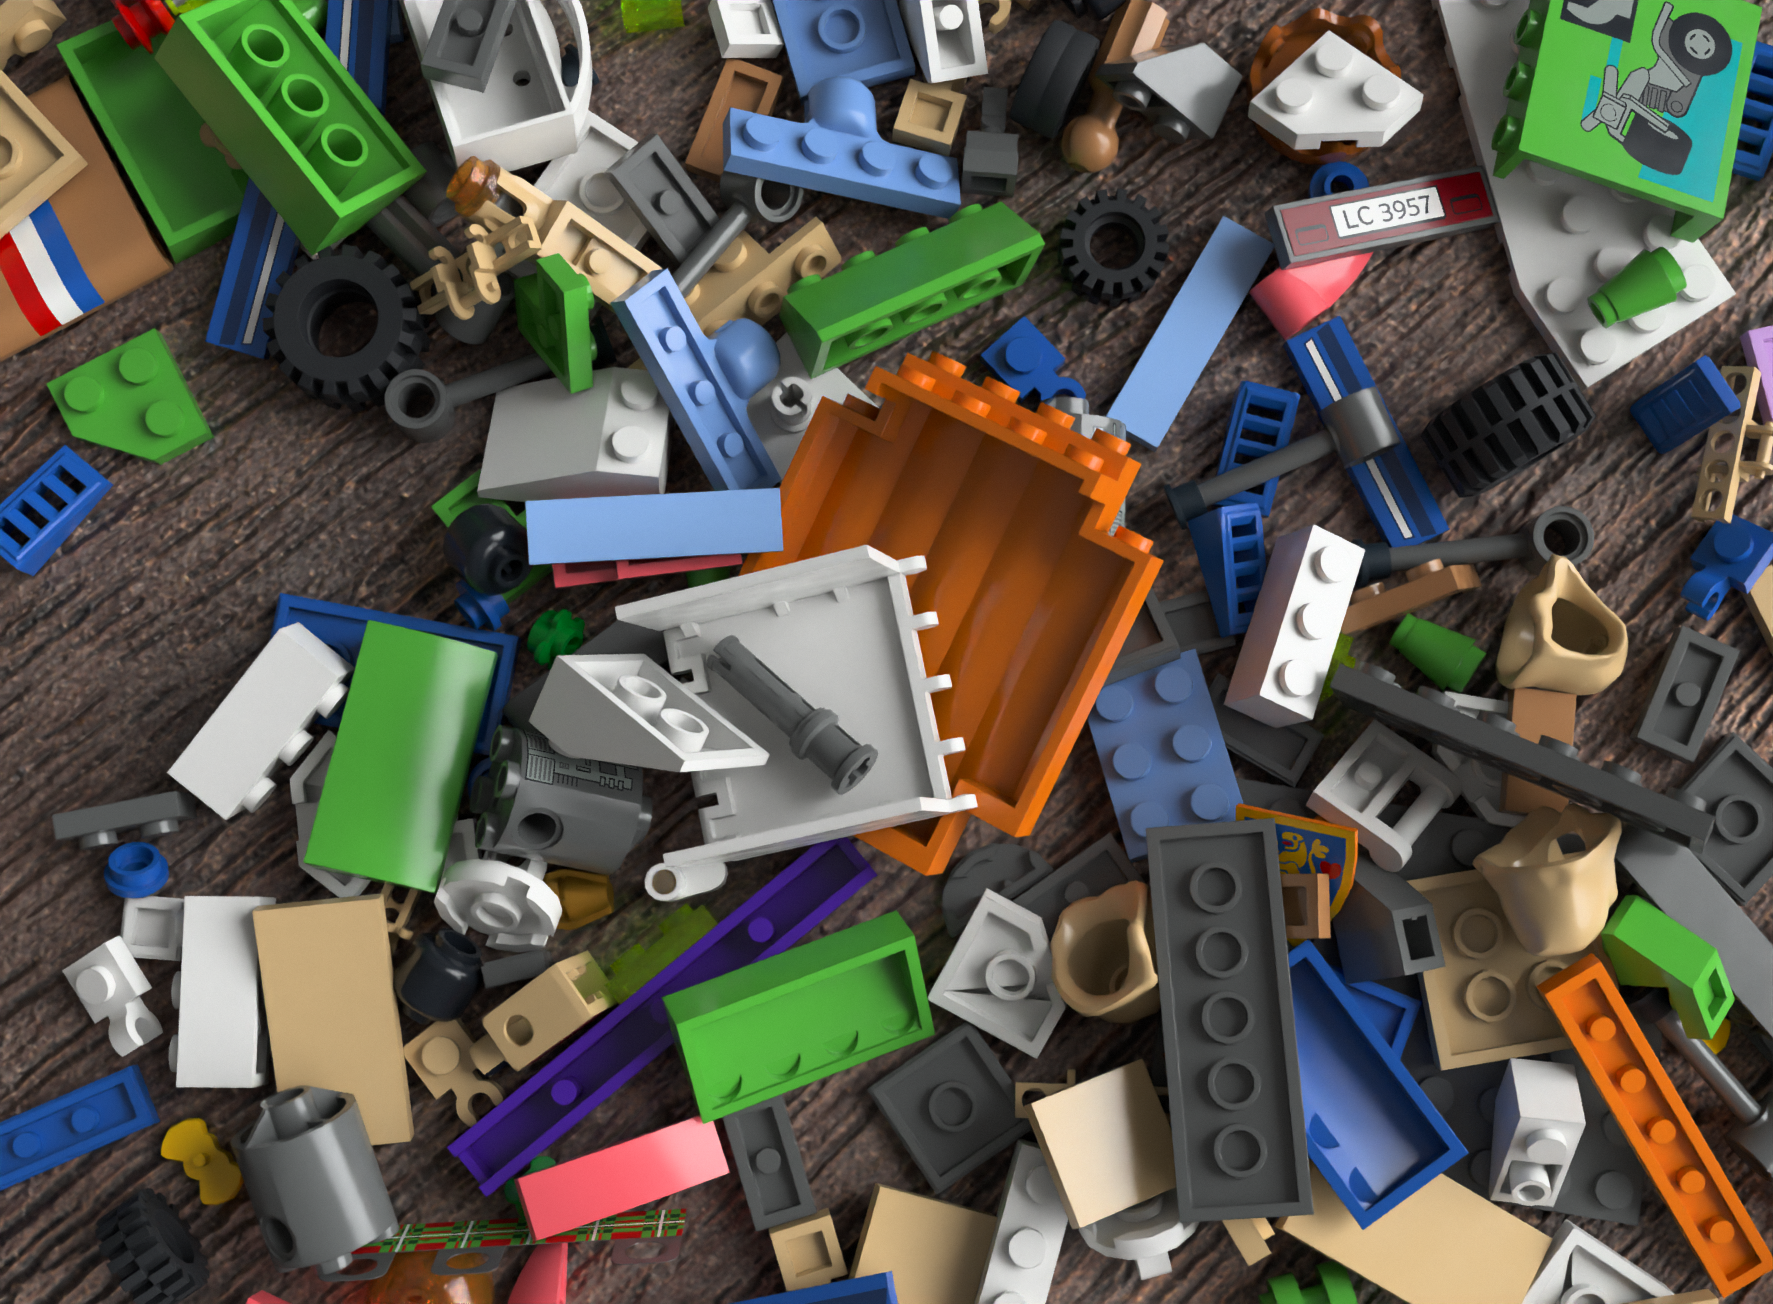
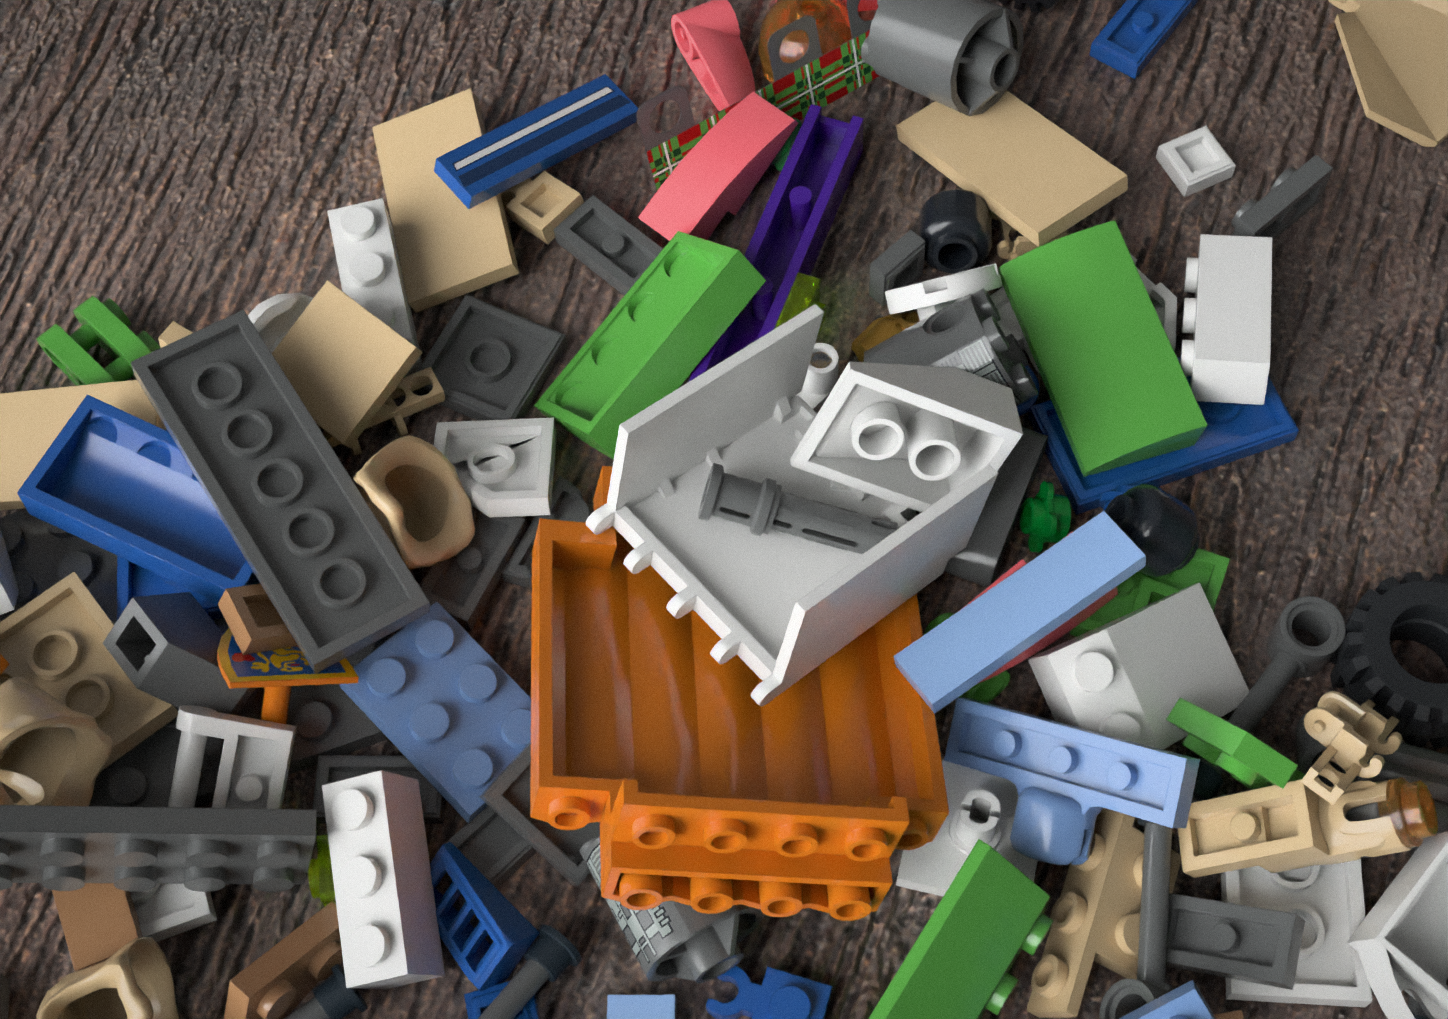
camera: 155 degrees right, 20 degrees down
(111, 987) = (1194, 102): white plate -> none
(135, 870) = (1253, 180): blue plate -> none
(203, 1160) = (1049, 48): yellow piece -> none
(219, 995) = (1099, 114): white brick -> none
(444, 1064) = (898, 191): tan plate -> none
(543, 1015) = (853, 220): tan torso -> none
(1438, 652) = (224, 948): bright green cone -> none

